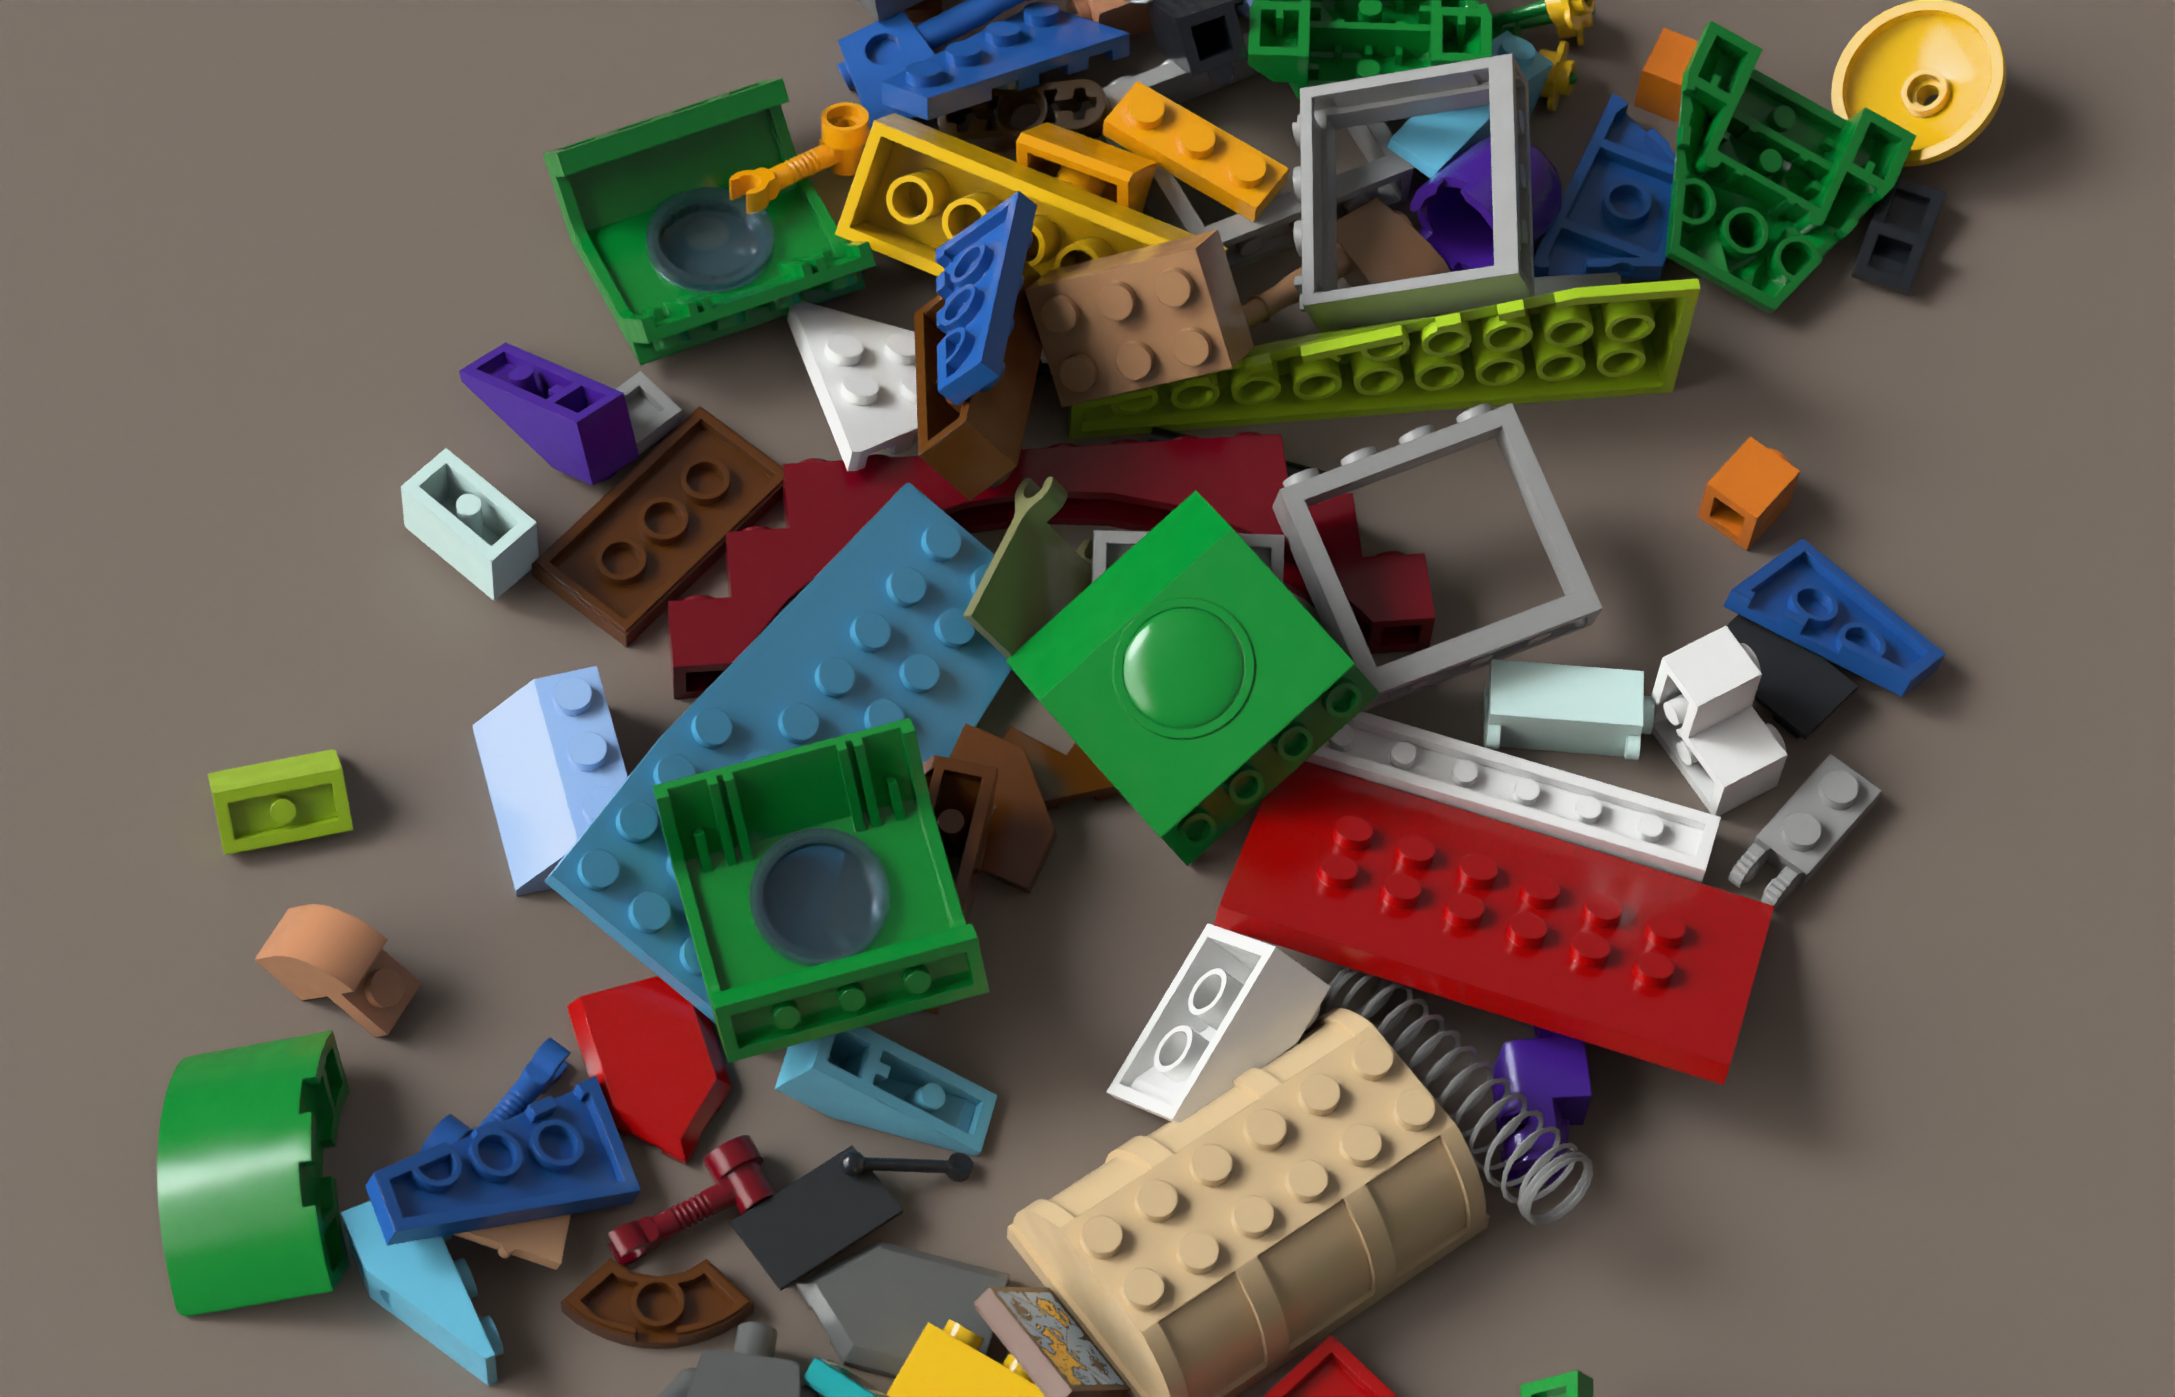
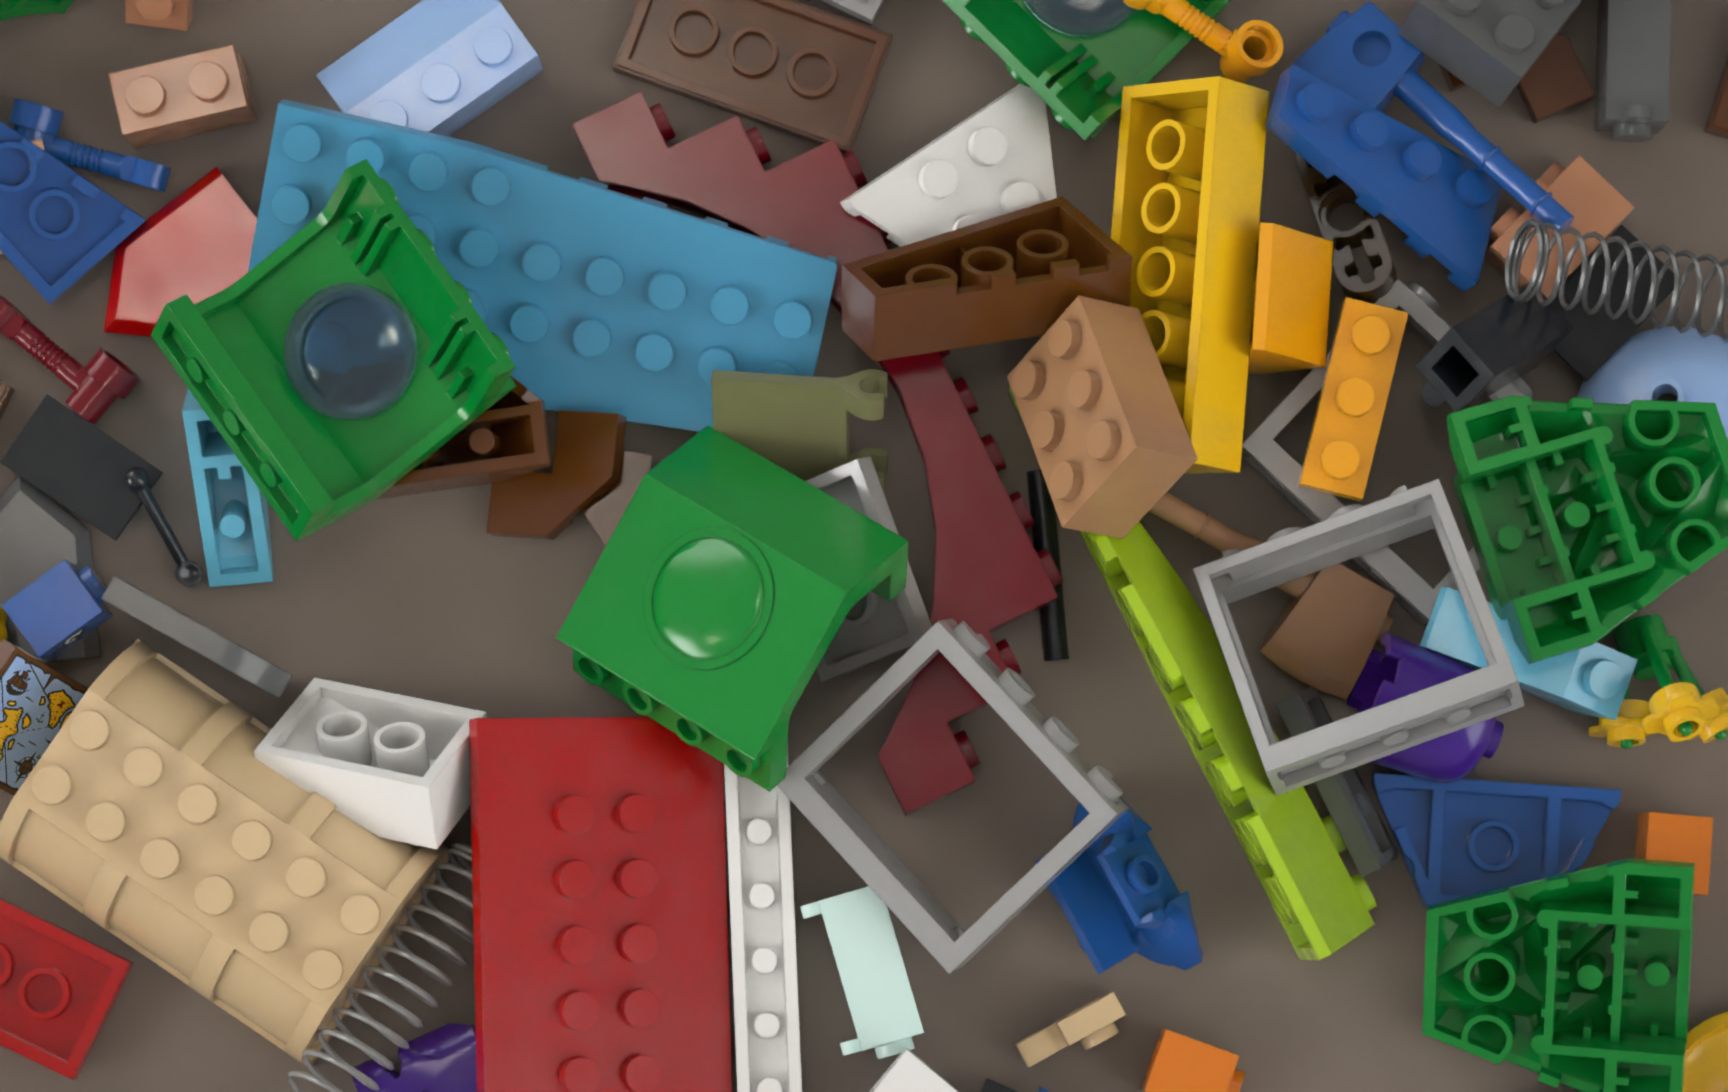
camera: 75 degrees right, 25 degrees up
(489, 998) = (182, 96): none -> nougat brick
(953, 1265) = (59, 608): none -> blue brick
(980, 297) = (1024, 260): blue wing -> none
(1031, 1153) = (196, 636): none -> dark grey tile
(1607, 478) = (1126, 899): none -> blue piece
(1675, 558) = (1089, 1024): none -> tan plate

